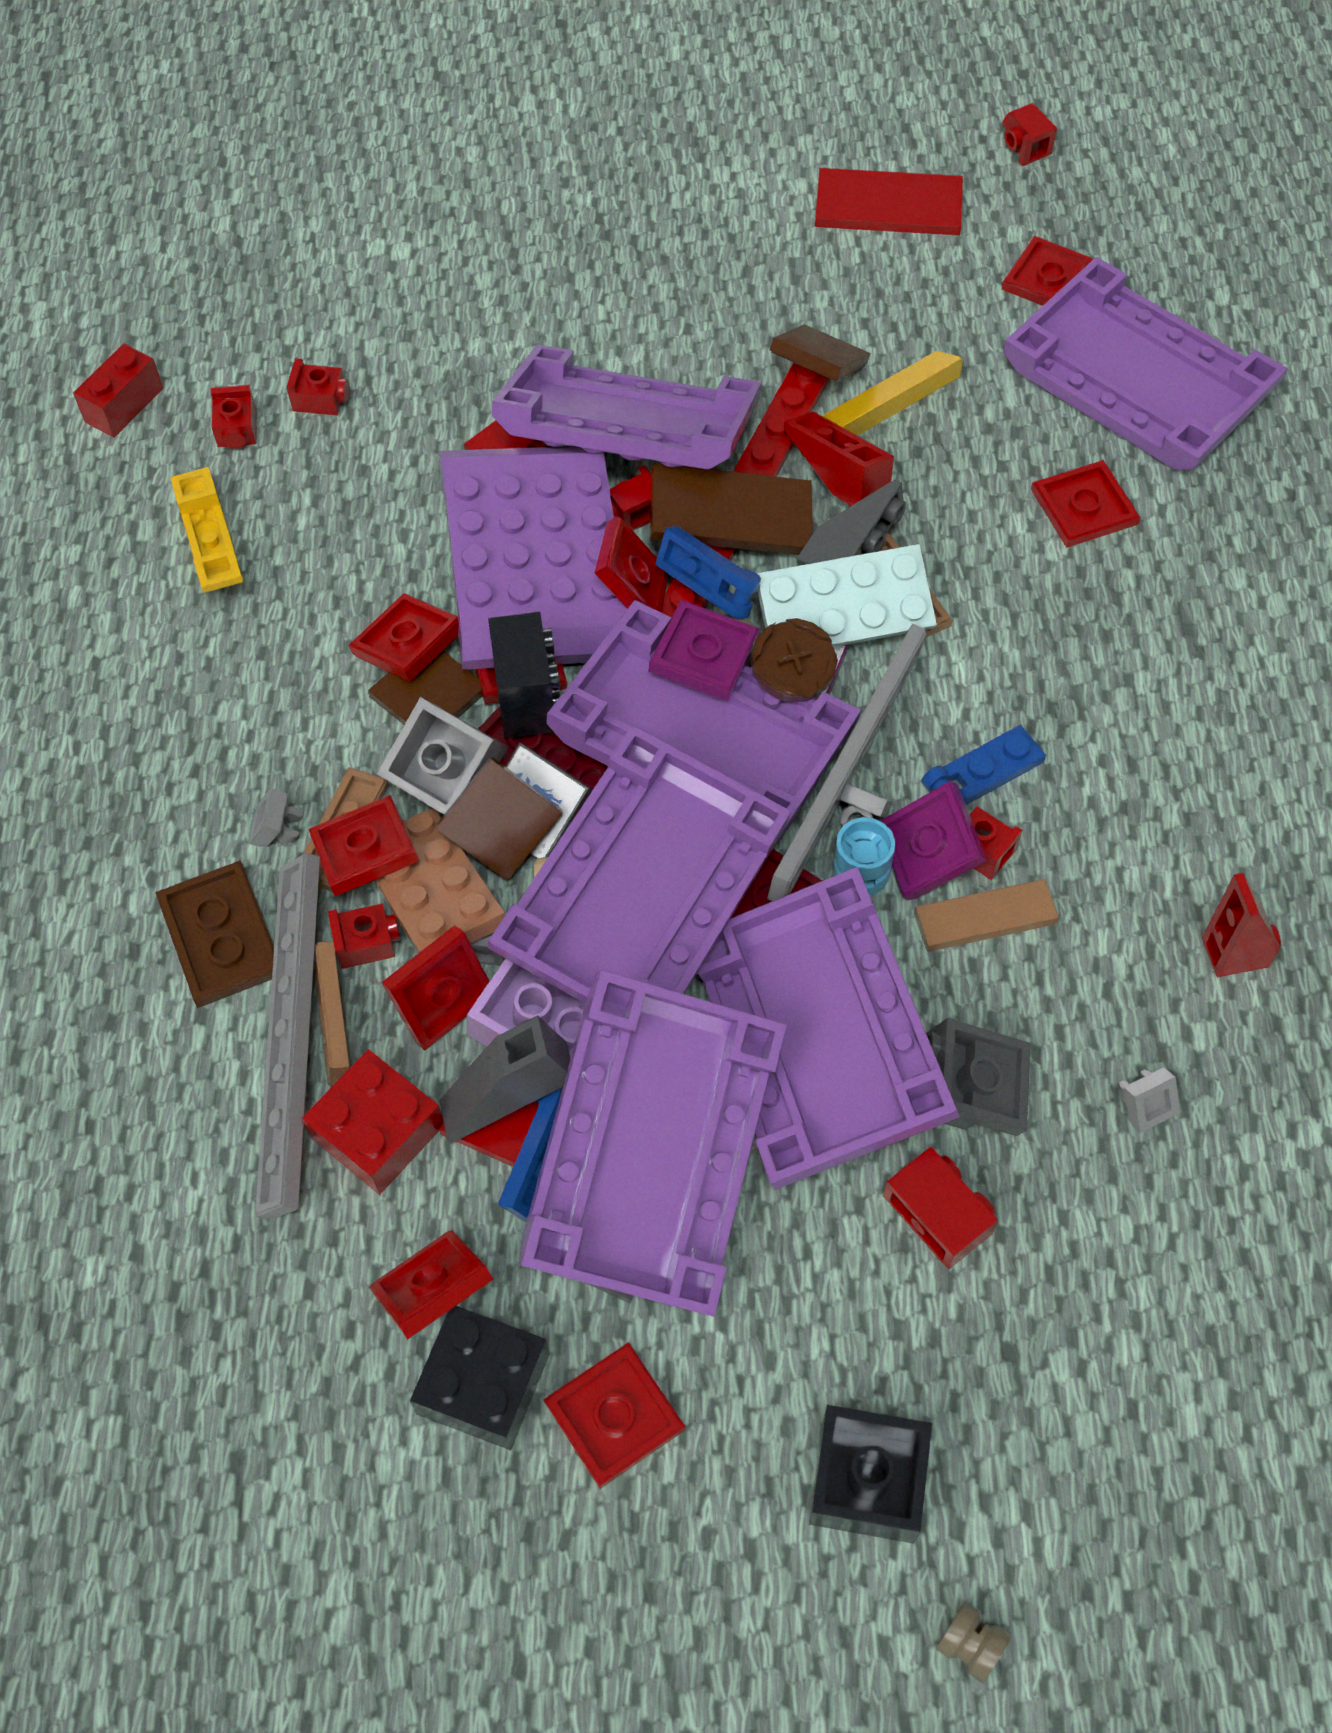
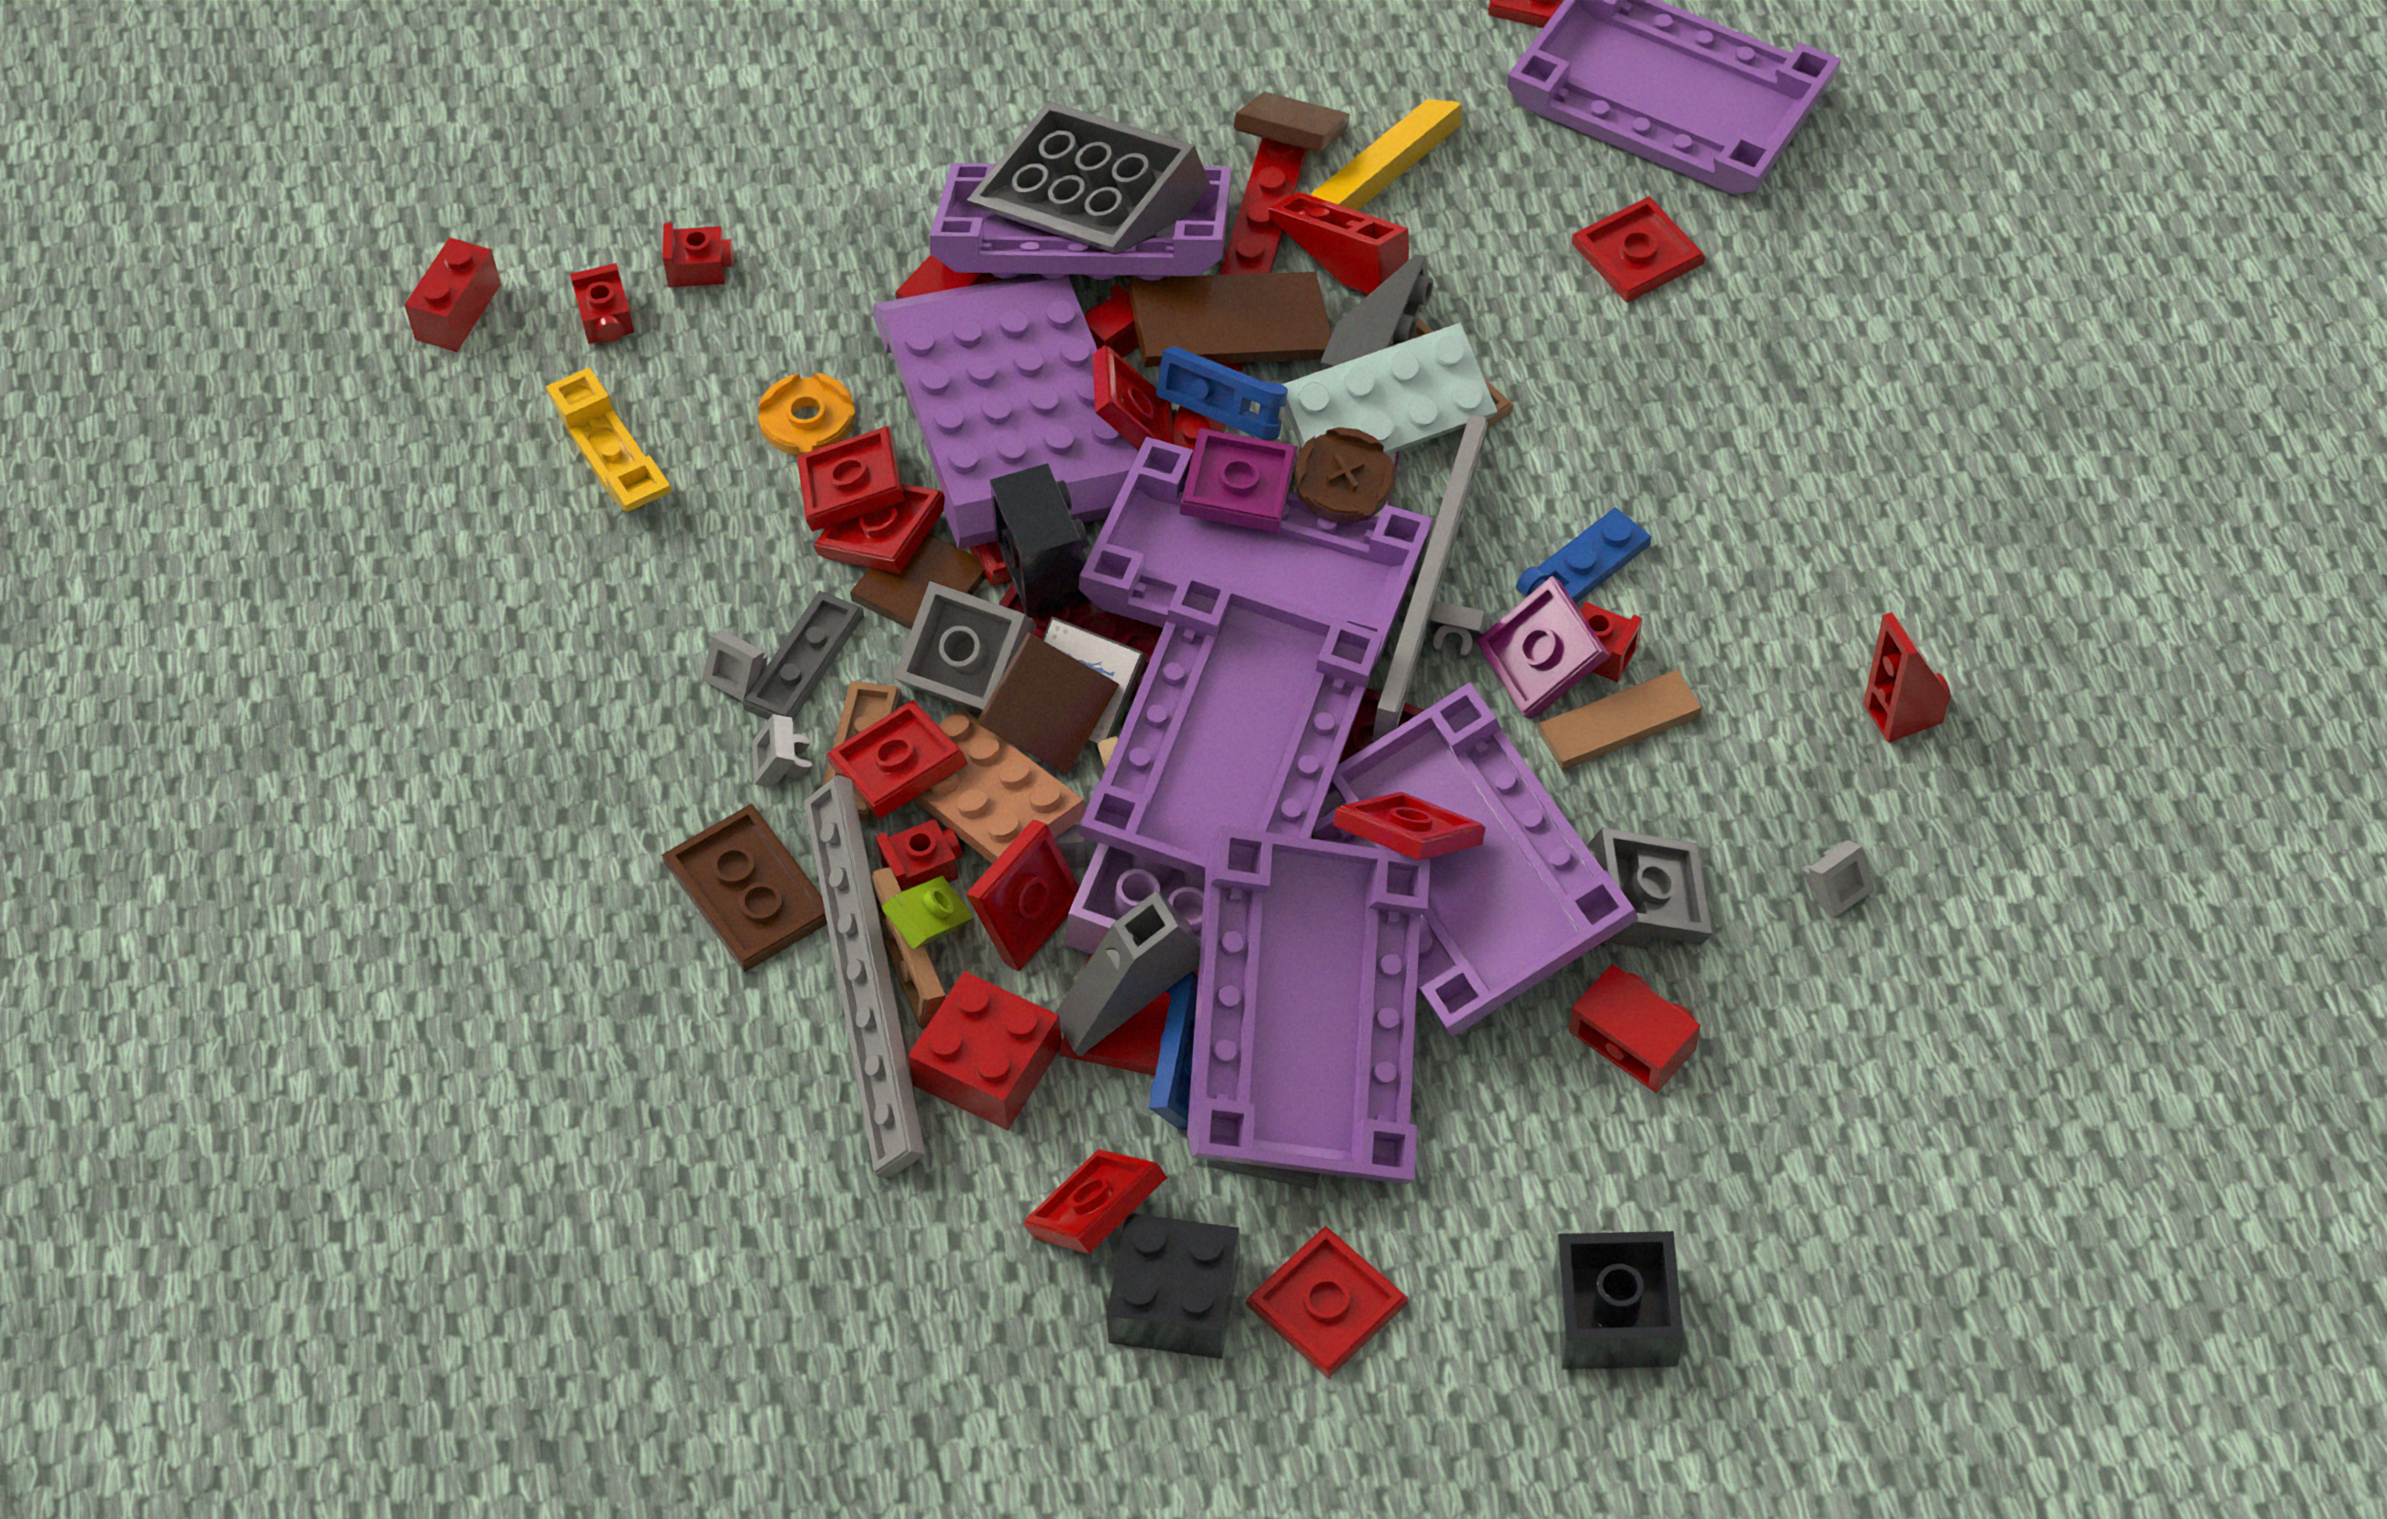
camera: 10 degrees left, 5 degrees down
(257, 737) = (733, 664): none -> light grey tile
(316, 741) = (804, 657): none -> dark grey tile
(351, 988) = (927, 912): none -> lime plate
(376, 551) = (805, 435): none -> light orange tile
(391, 594) = (850, 478): none -> red tile
(642, 376) = (1093, 179): none -> dark grey slope
(776, 990) = (1409, 825): none -> red tile
(869, 847) = (1472, 659): medium azure wheel -> none
(974, 1642) = (1761, 1443): dark tan wheel -> none

